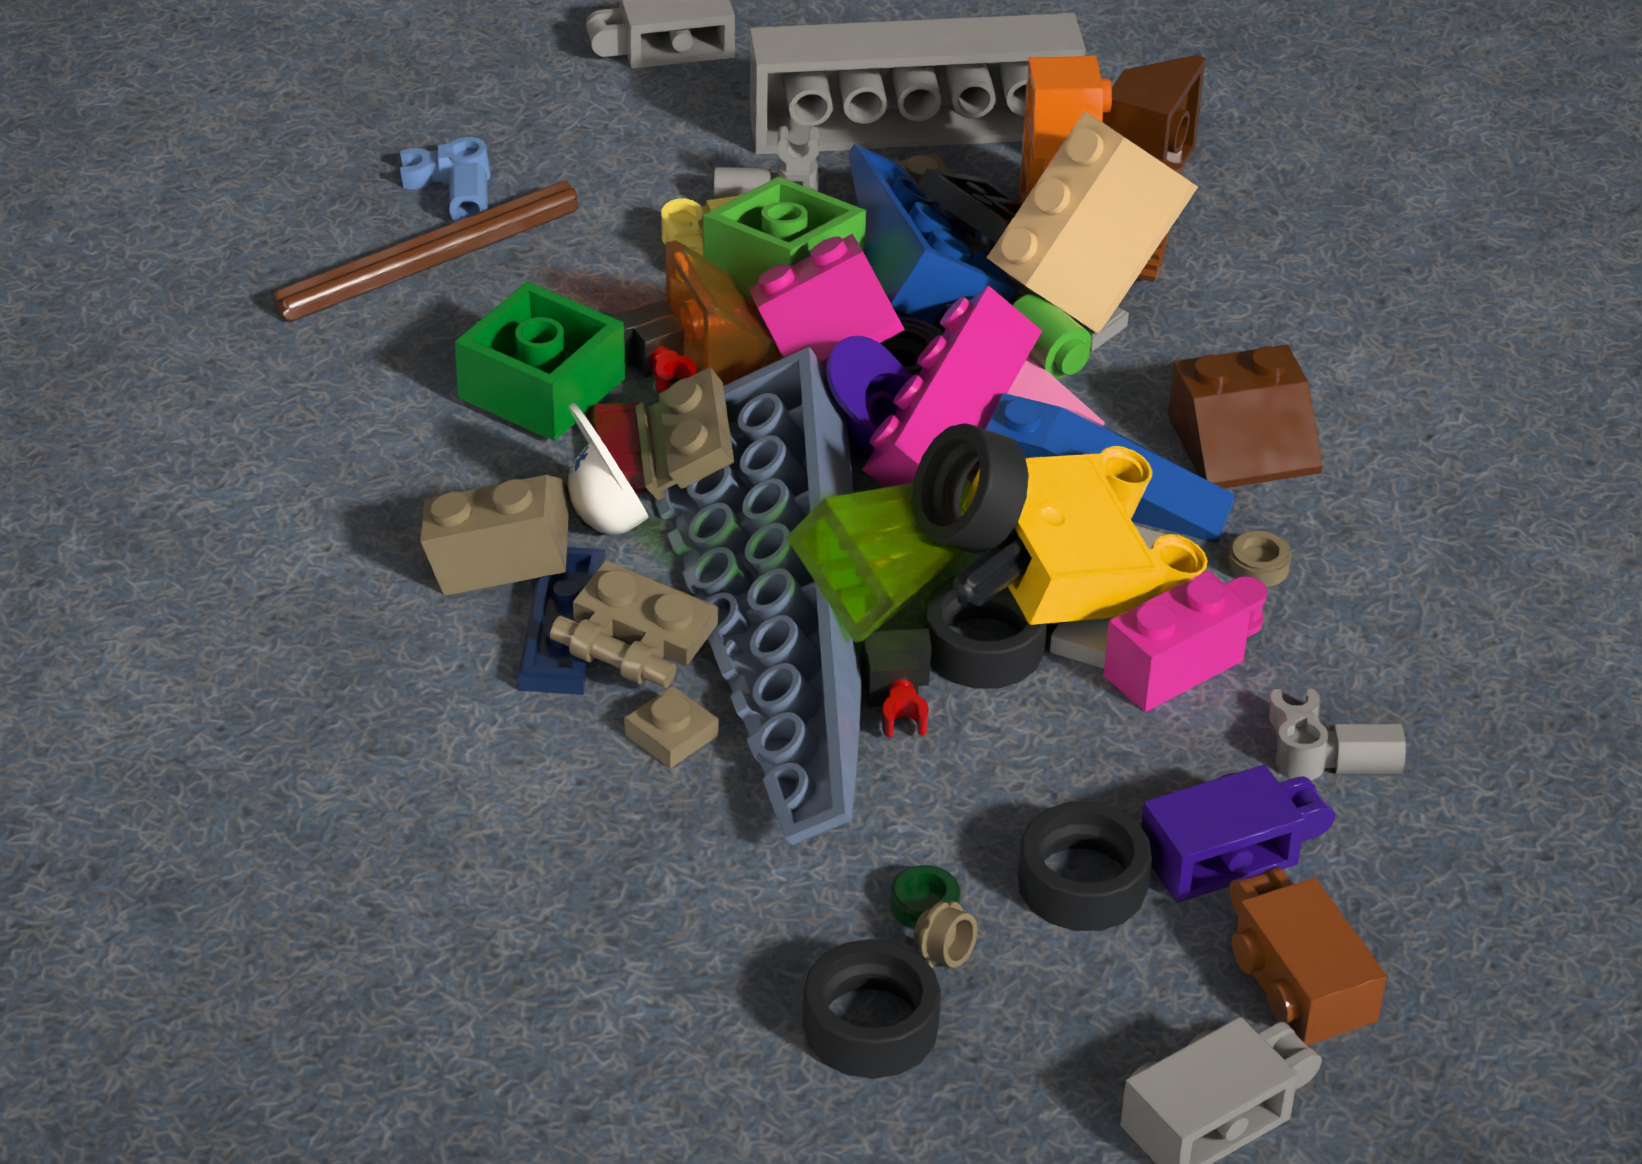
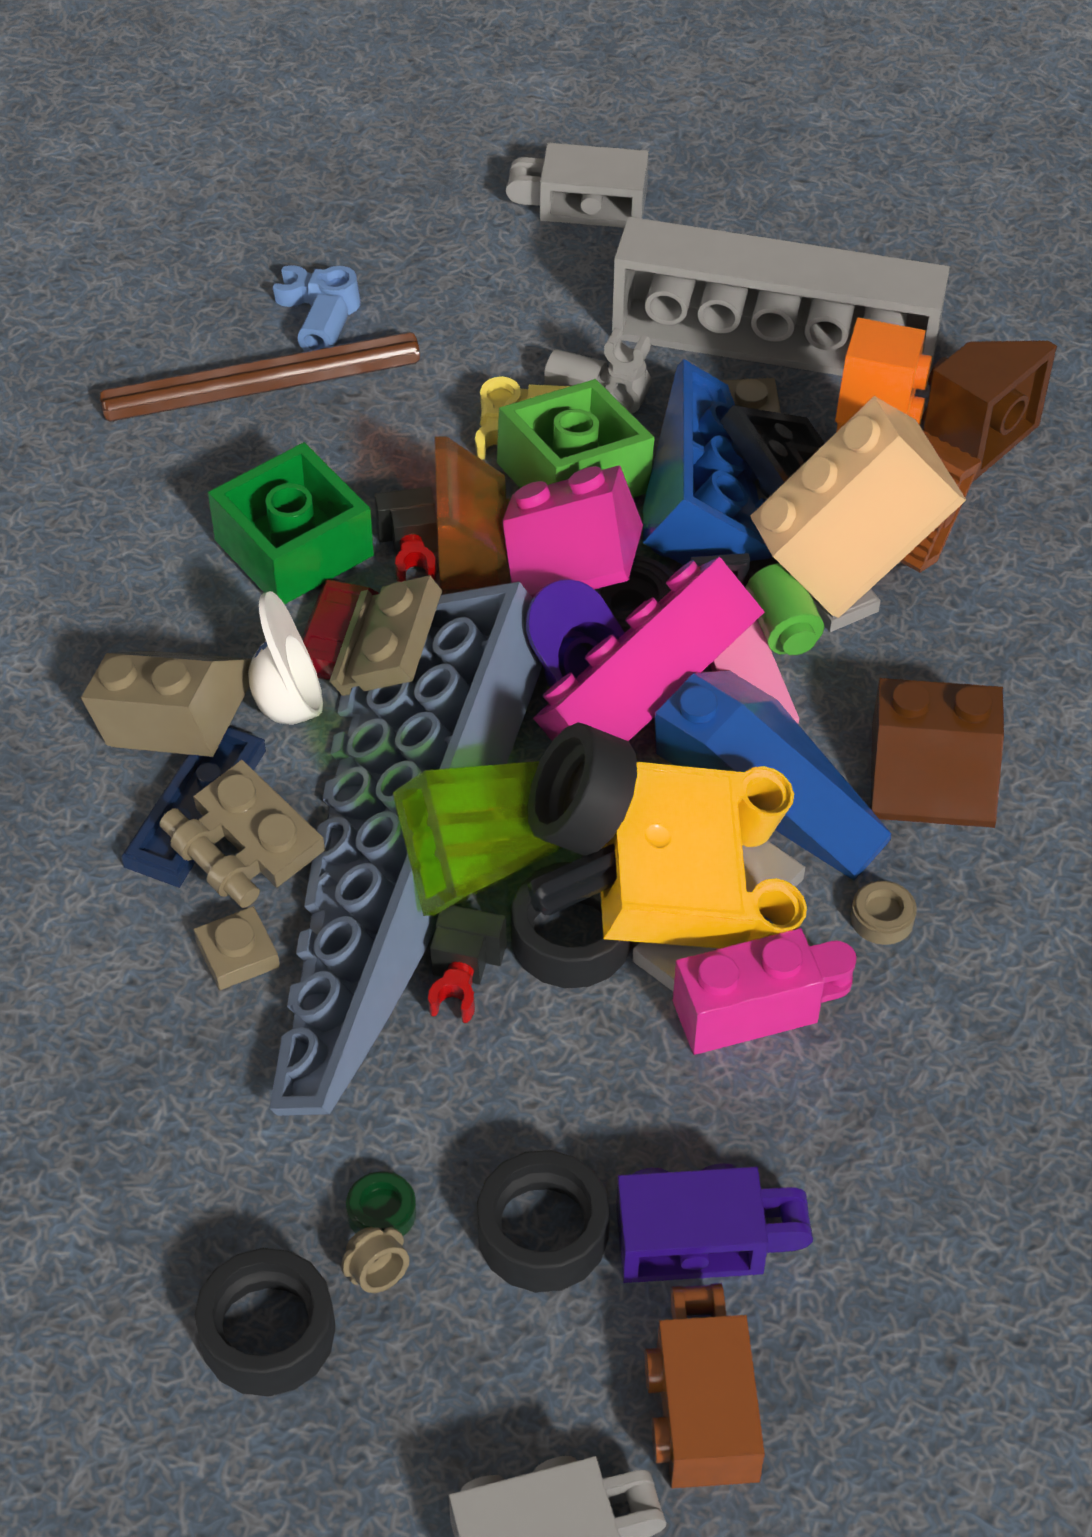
camera: 20 degrees right, 10 degrees up
(1308, 747) = (827, 1148): light grey bar -> none

